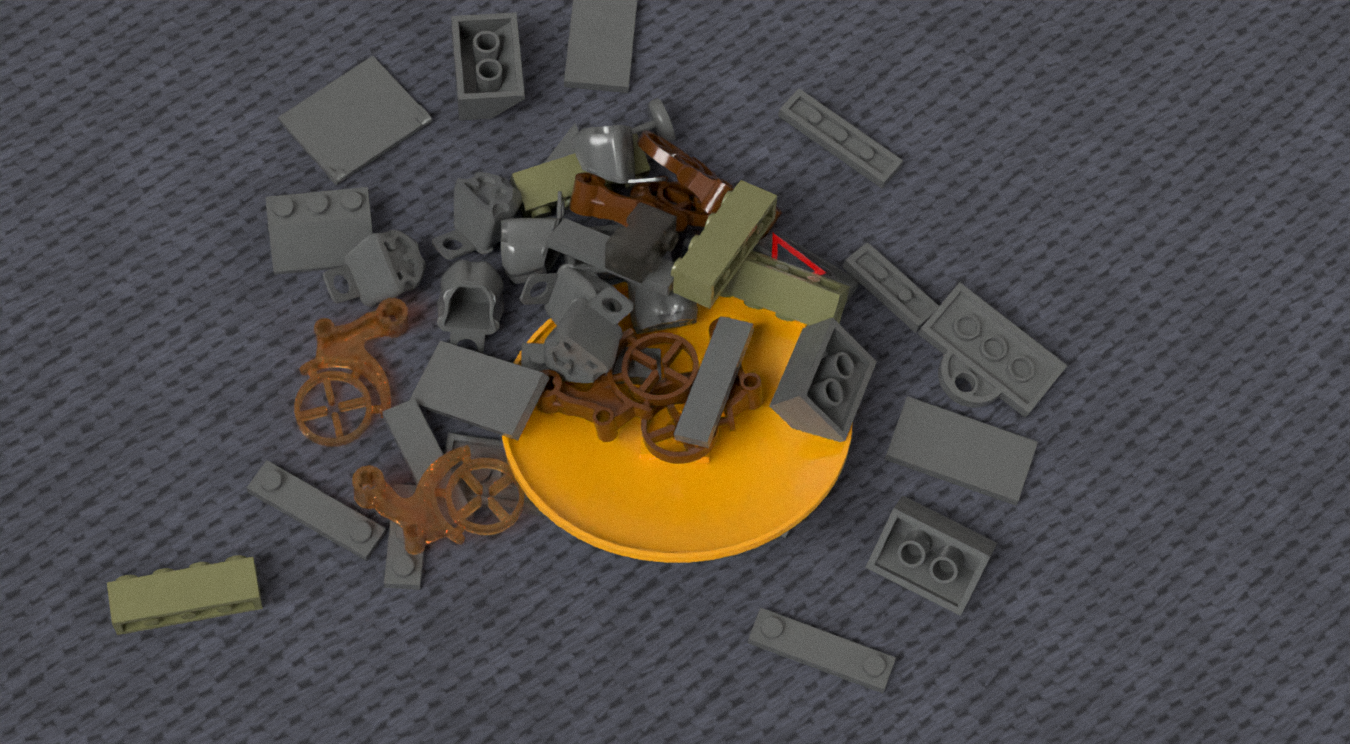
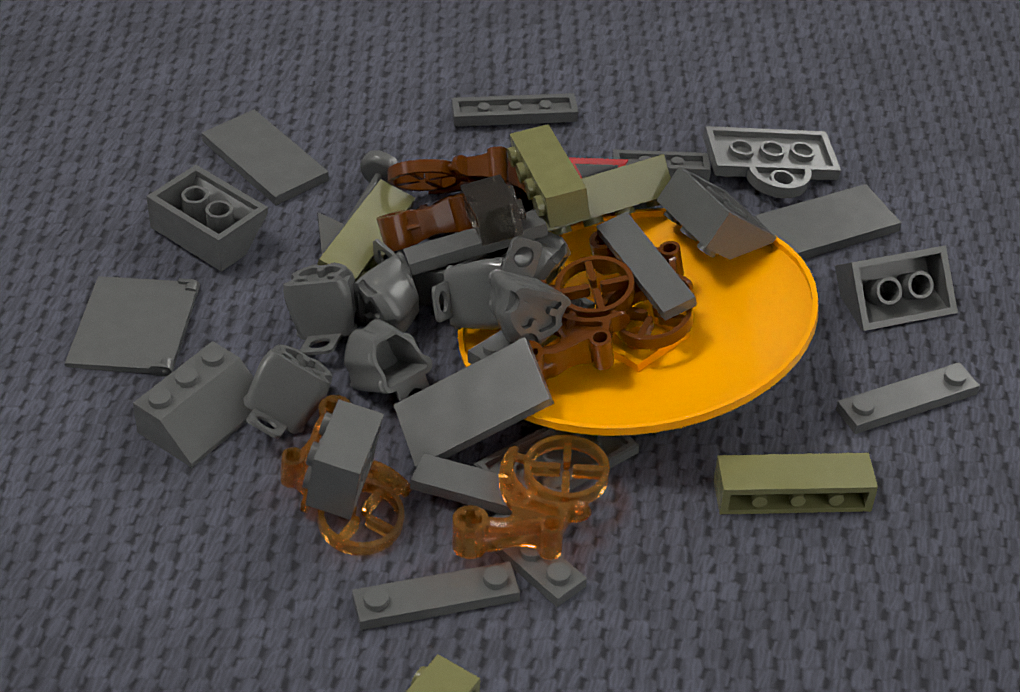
camera: 40 degrees left, 20 degrees down
(338, 361) = (342, 458): none -> dark grey brick
(608, 153) = (386, 189): dark grey piece -> none
(642, 642) = (794, 483): none -> olive brick

